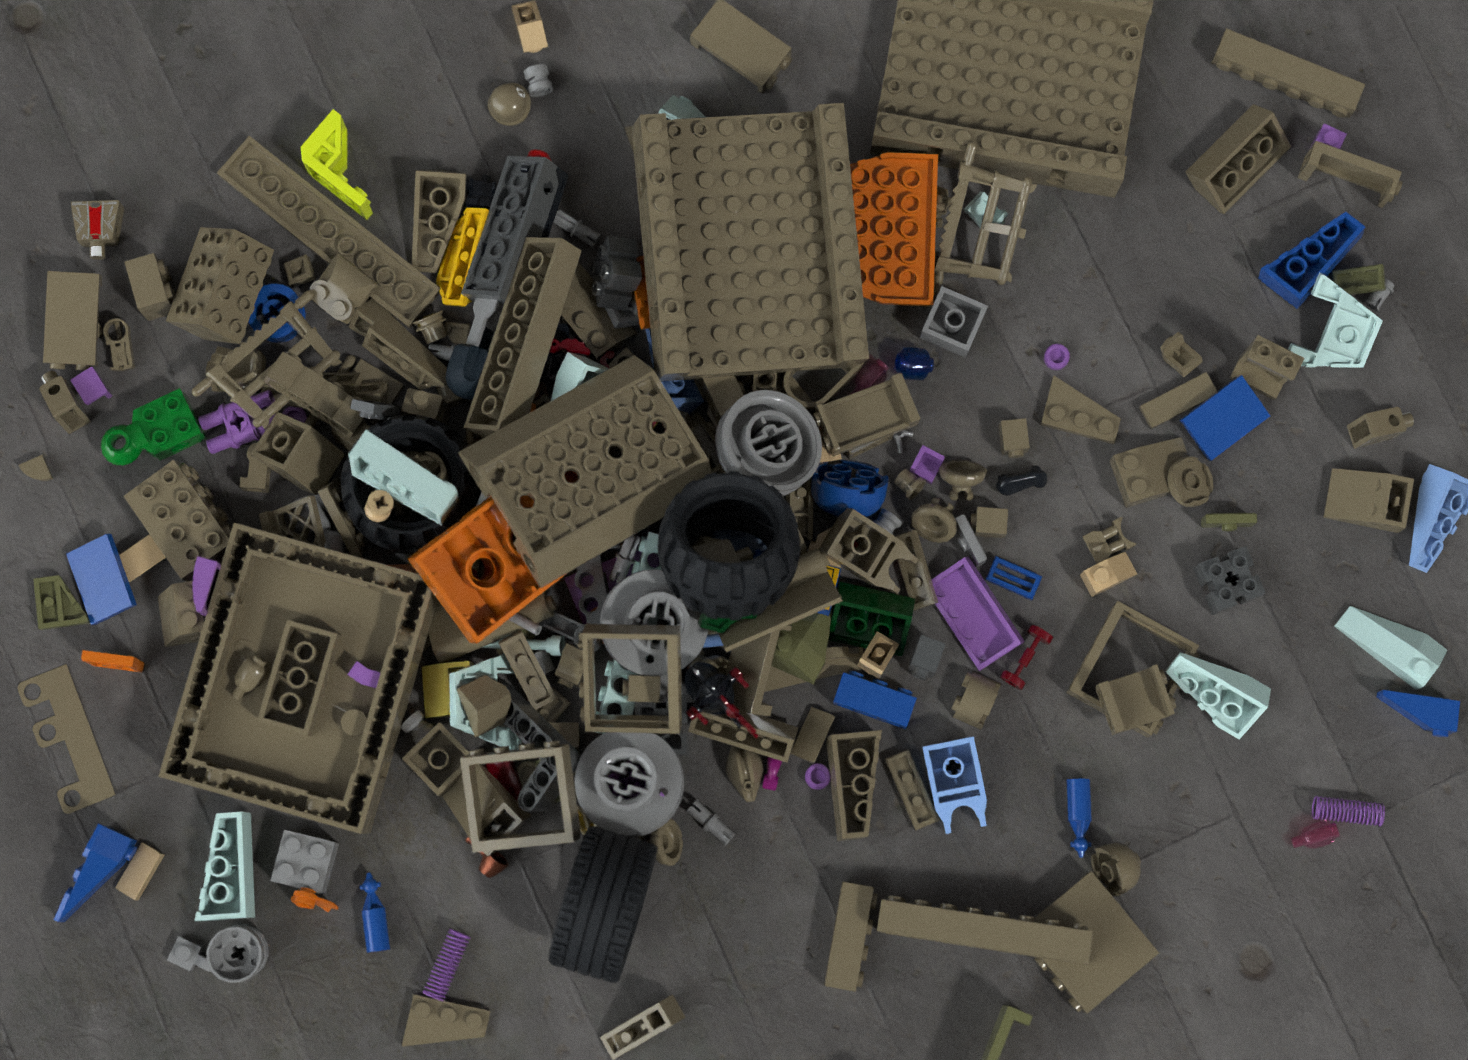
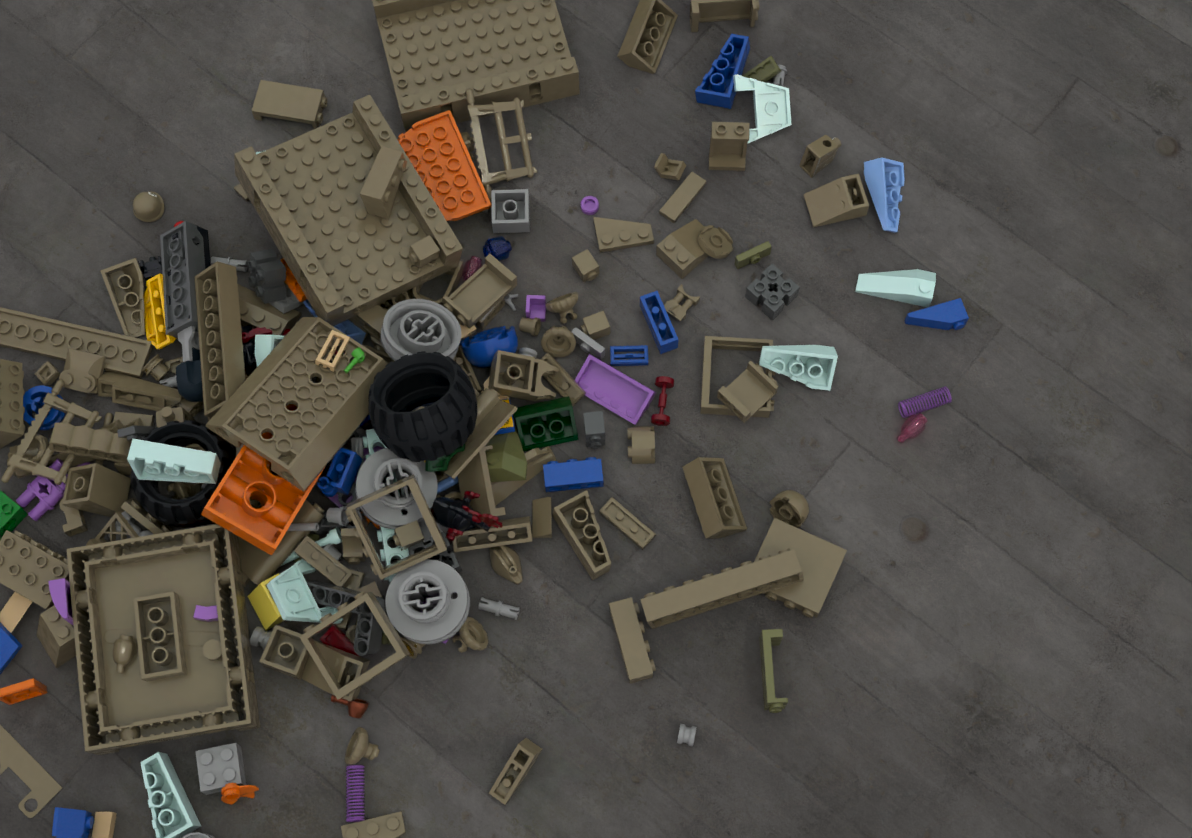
camera: 20 degrees left, 10 degrees down
(327, 150) = (37, 296): neon yellow bracket -> none
(374, 917) = (289, 785): blue wheel -> none
(375, 511) = (169, 494): tan wheel -> none
(474, 914) = (360, 747): none -> dark tan hair
(484, 703) = (301, 595): dark tan slope -> none
(529, 26) = (141, 152): tan slope -> none
(538, 80) = (163, 185): light grey wheel -> none
(570, 625) = (337, 515): none -> light grey piece
(595, 575) = (341, 473): none -> blue hinge
(602, 904) = (445, 691): black tyre -> none
(635, 438) = (326, 363): none -> tan tile
(679, 445) = (358, 356): none -> bright green hand
(771, 779) = (527, 560): magenta arm -> none
(809, 231) = (383, 182): none -> dark tan wedge
(817, 776) = (558, 544): medium lavender tile -> none
(818, 340) = (423, 251): none -> dark tan brick
(877, 655) = (560, 444): tan slope -> none
(957, 789) = (656, 507): light blue brick -> none
(976, 210) = (493, 138): light aqua bracket -> none
(1011, 484) = (598, 296): black piece -> none
(1031, 809) = (714, 497): none -> dark tan slope
(1069, 555) = (658, 322): none -> blue brick
(1079, 812) = (747, 484): blue wheel -> none
(1108, 574) = (690, 324): tan slope -> none
(1225, 418) = (718, 193): blue tile -> none

